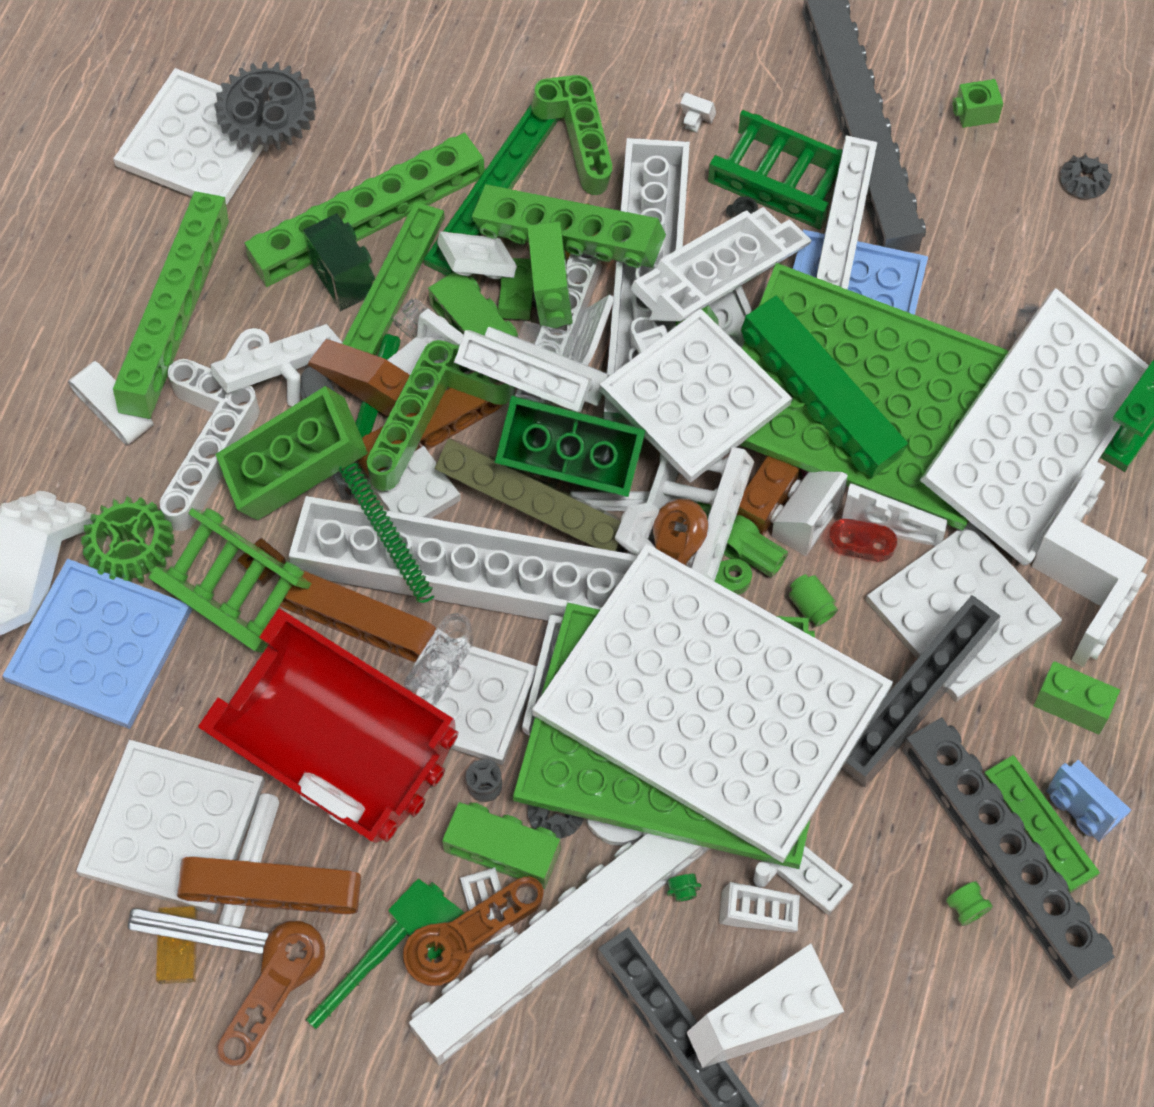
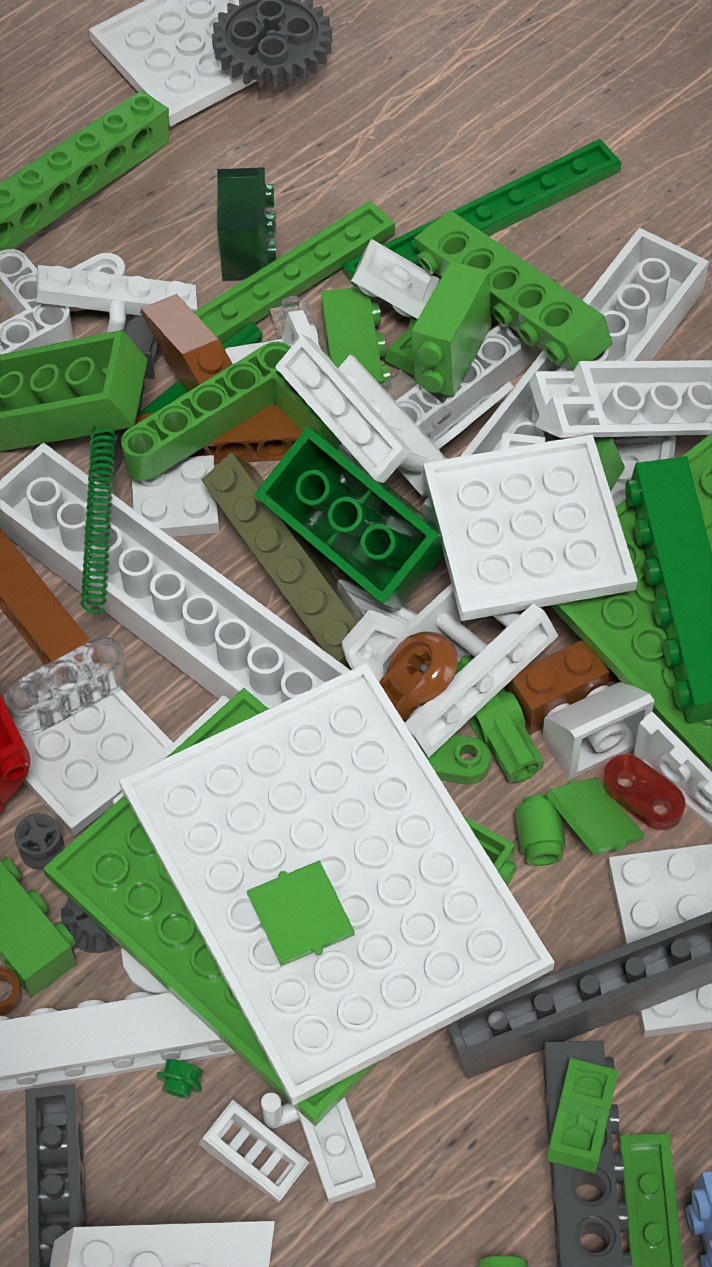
camera: 30 degrees right, 5 degrees down
(387, 198) = (325, 184): bright green brick -> none
(591, 134) = (608, 166): bright green beam -> none
(712, 735) = (300, 913): none -> bright green piece
(842, 572) = (595, 815): none -> bright green piece
(960, 771) = (582, 1115): none -> bright green slope

